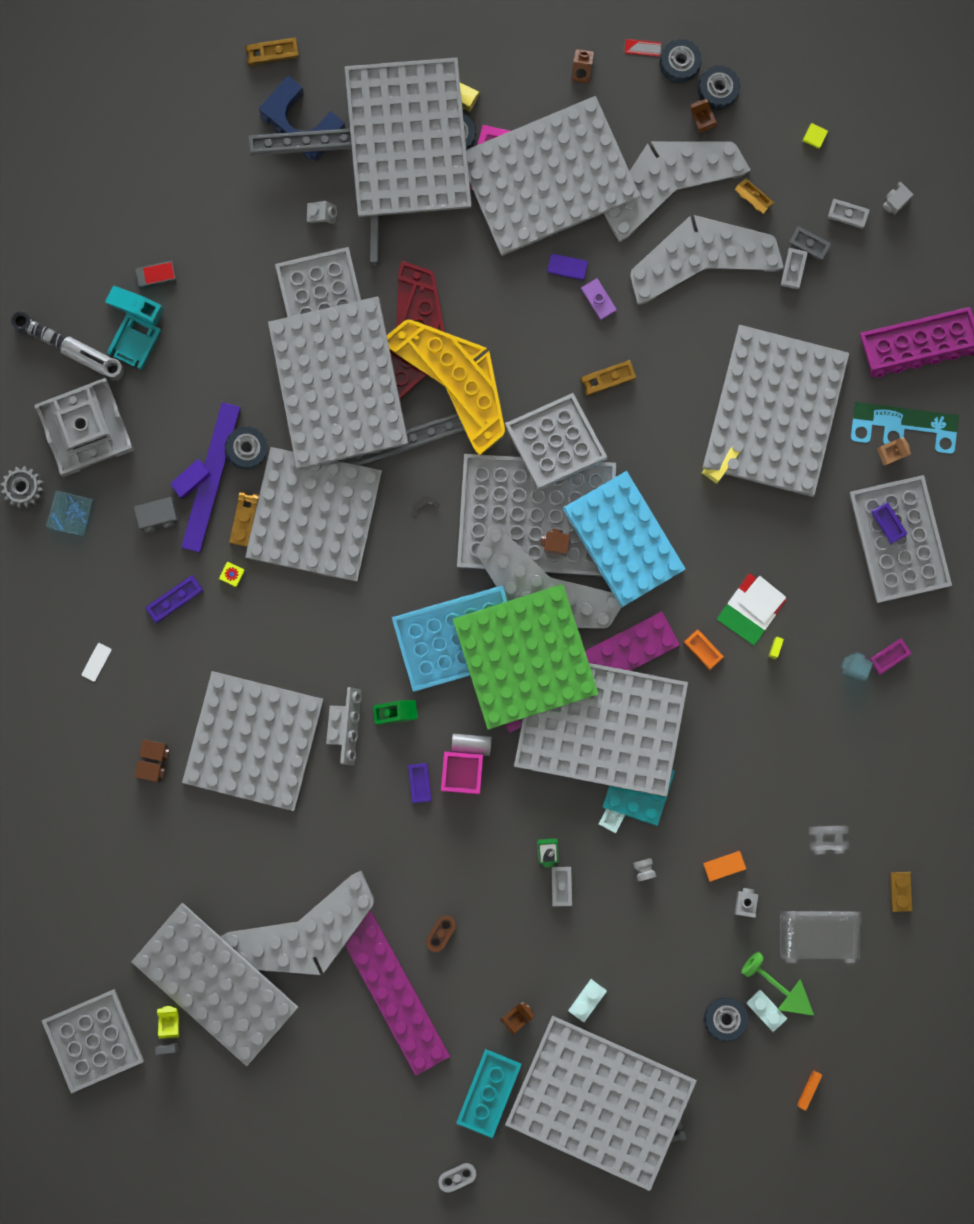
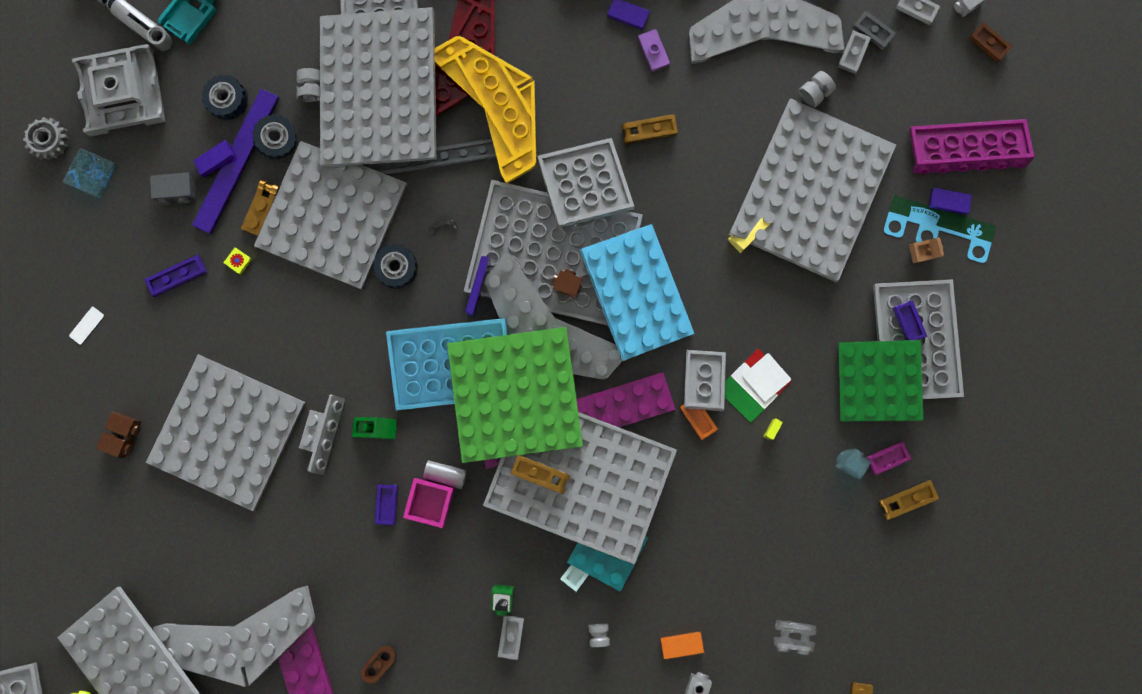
camera: 10 degrees right, 0 degrees up
(180, 408) = (232, 105): none -> black wheel
(269, 391) = (309, 85): none -> light grey wheel
(386, 541) = (383, 263): none -> black wheel
(470, 559) = (477, 286): none -> dark purple tile
(563, 727) = (539, 474): none -> pearl gold plate
(703, 612) = (704, 380): none -> light grey tile
(764, 311) = (819, 87): none -> light grey wheel
(870, 584) = (881, 381): none -> green plate
(910, 399) = (950, 201): none -> dark purple tile
(916, 692) = (909, 499): none -> pearl gold plate
(924, 236) = (990, 42): none -> reddish brown plate

